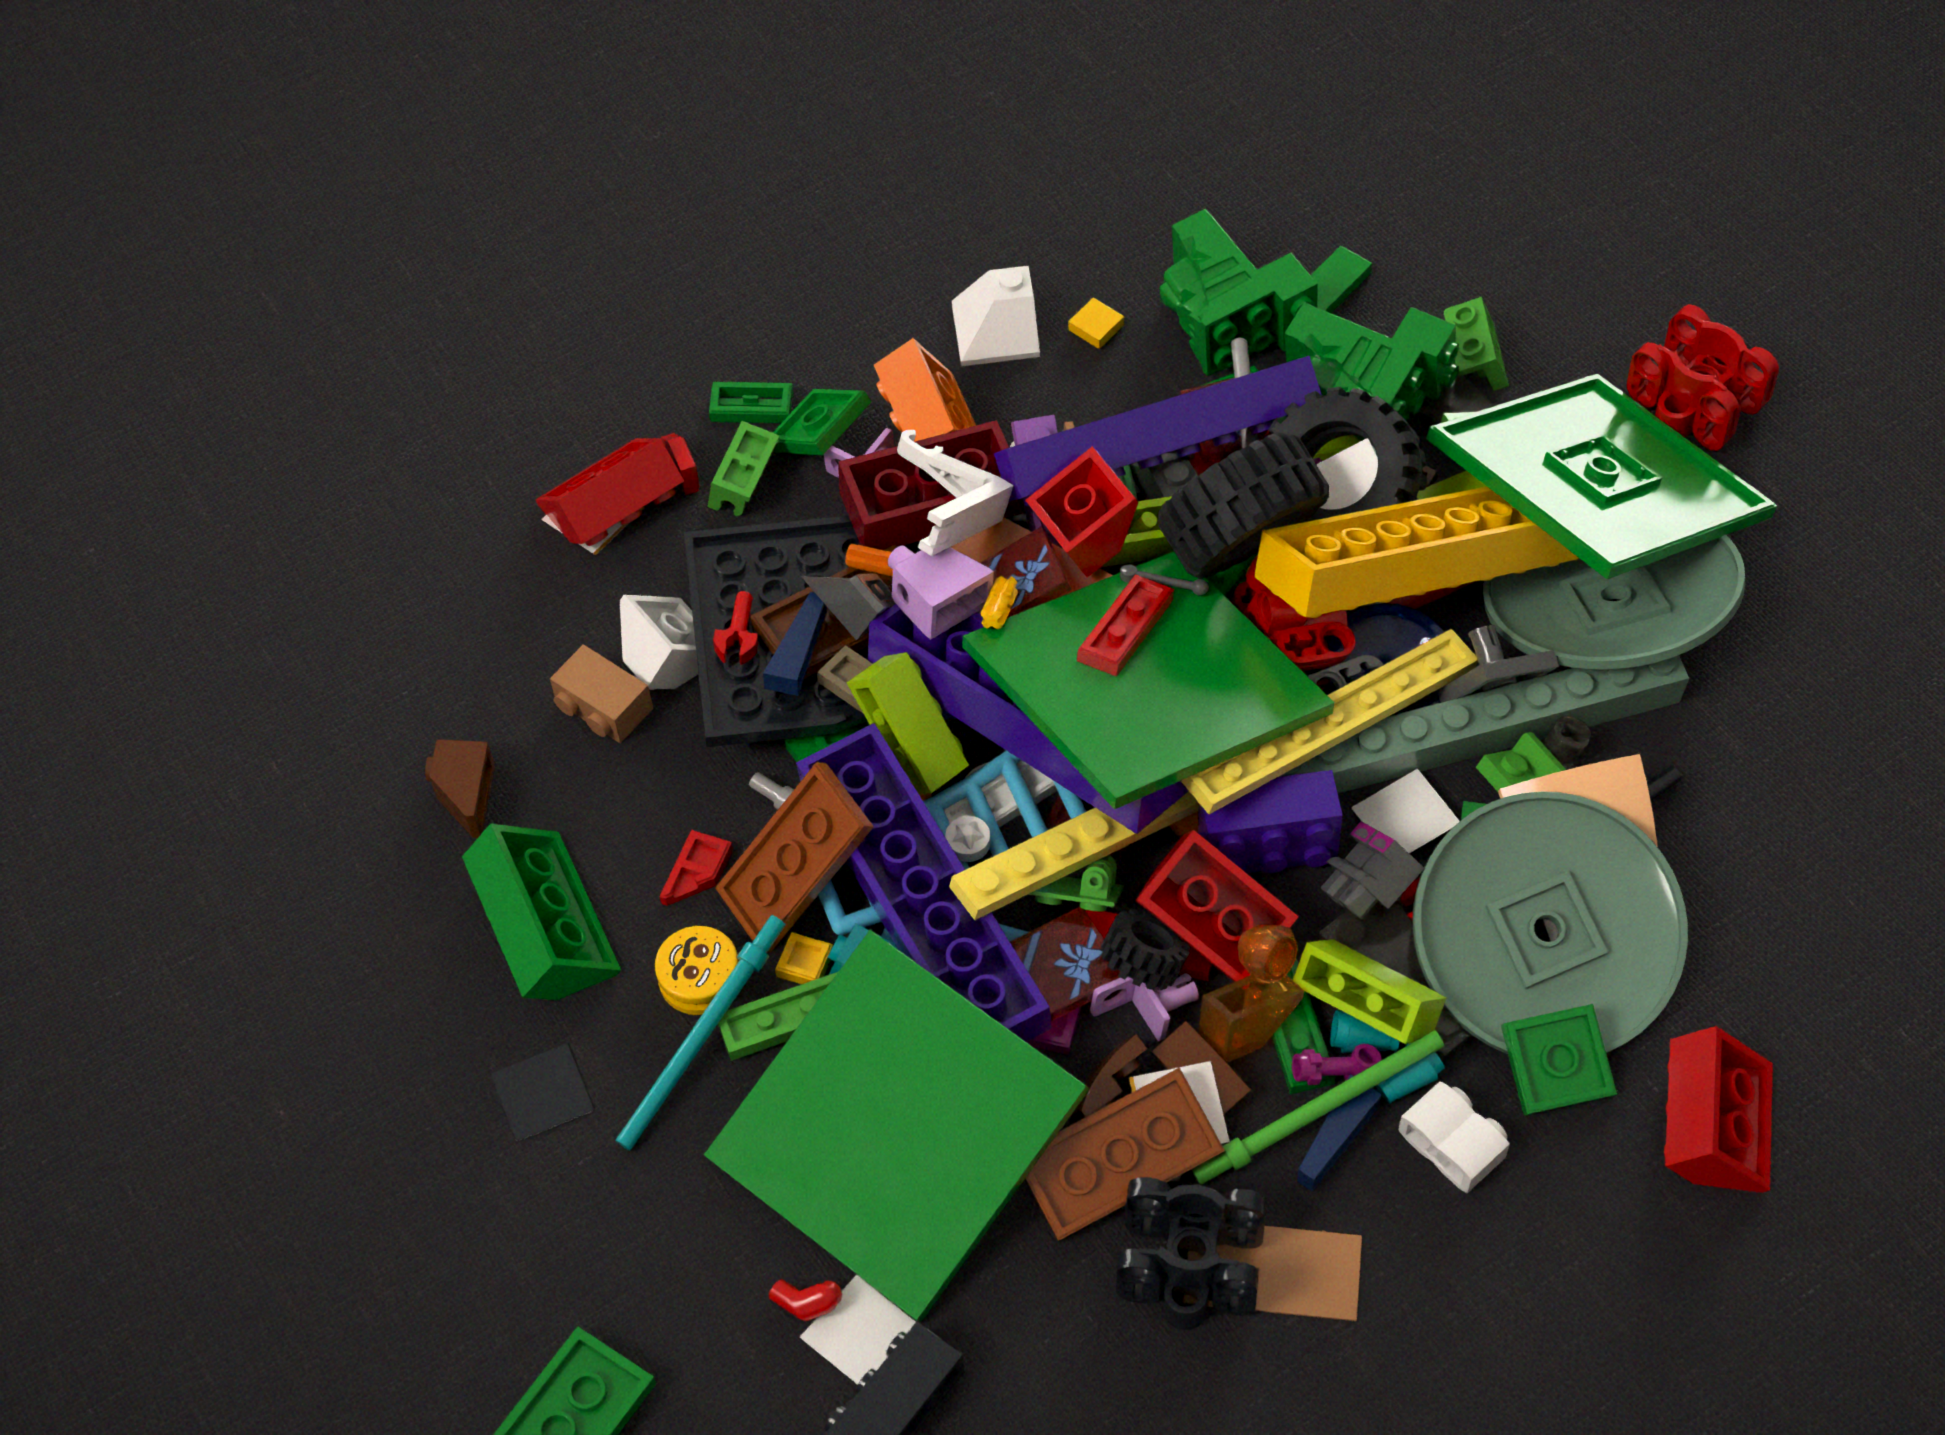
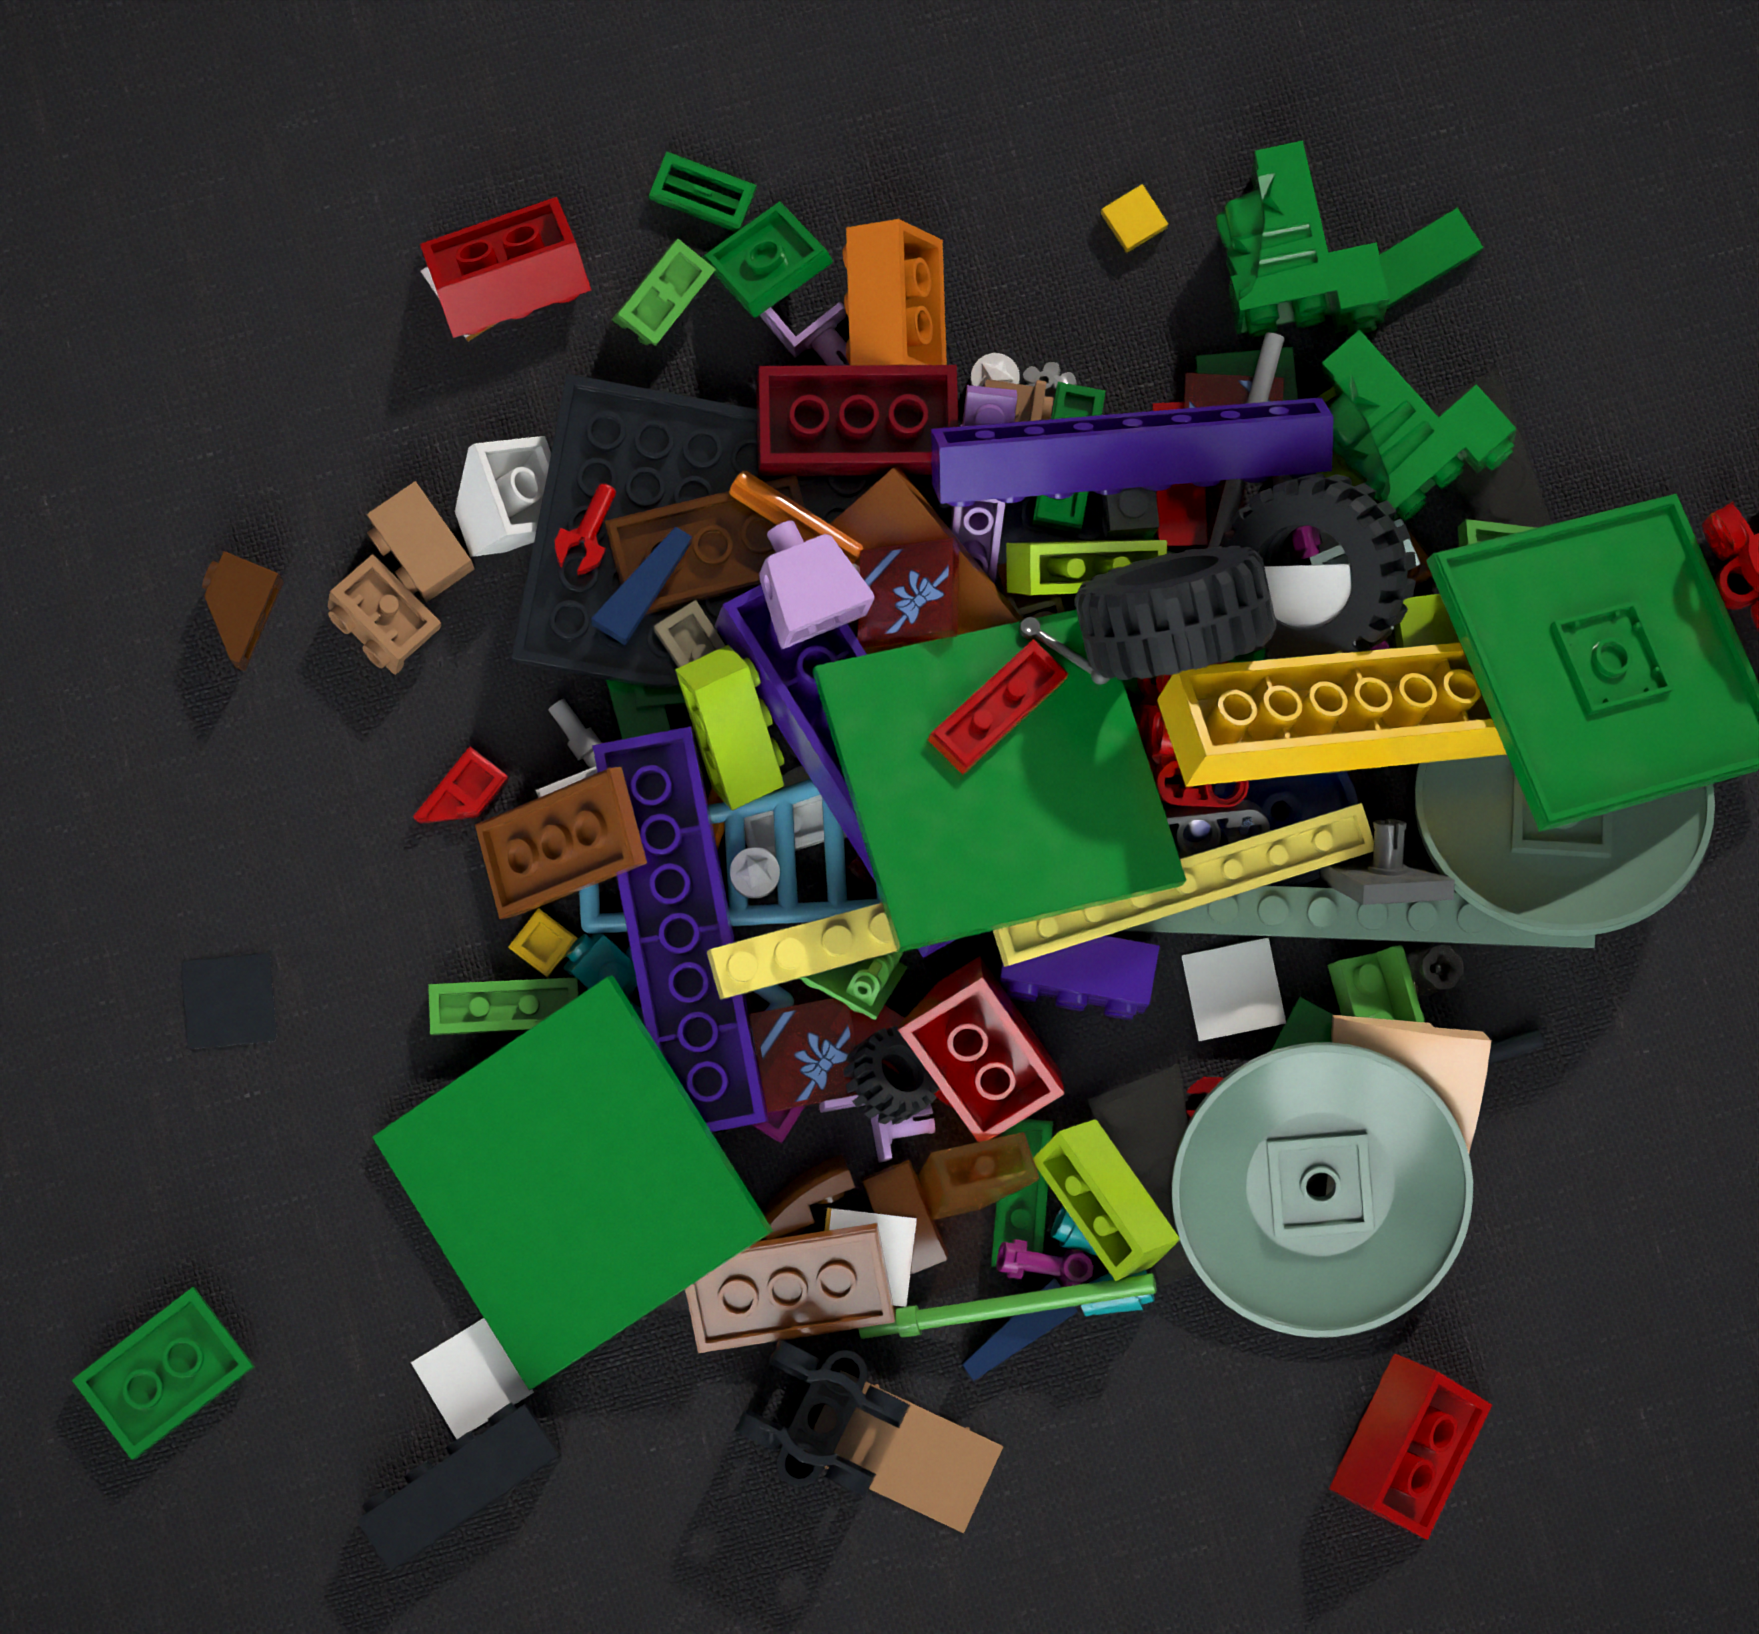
camera: 10 degrees right, 25 degrees up
(539, 911) = (281, 794): green slope -> none
(584, 754) = (381, 614): none -> medium nougat bracket
(683, 460) = (597, 249): red tile -> none
(694, 967) = (427, 921): yellow head -> none
(751, 959) = (481, 941): teal bar -> none
(809, 1302) = (427, 1335): red arm -> none
(854, 599) = (724, 553): dark grey slope -> none
(978, 494) = (900, 469): white hinge -> none
(997, 318) = (1018, 177): white slope -> none
(999, 602) = (865, 638): yellow piece -> none
(1086, 511) = (1001, 549): red slope -> none
(1267, 952) = (1013, 1130): clear orange cone -> none
(1371, 873) = (1162, 1062): dark grey hips -> none
(1454, 1136) = (1134, 1379): white brick -> none
(1477, 342) = (1553, 411): bright green bracket -> none
(1558, 1059) = (1273, 1332): green tile -> none

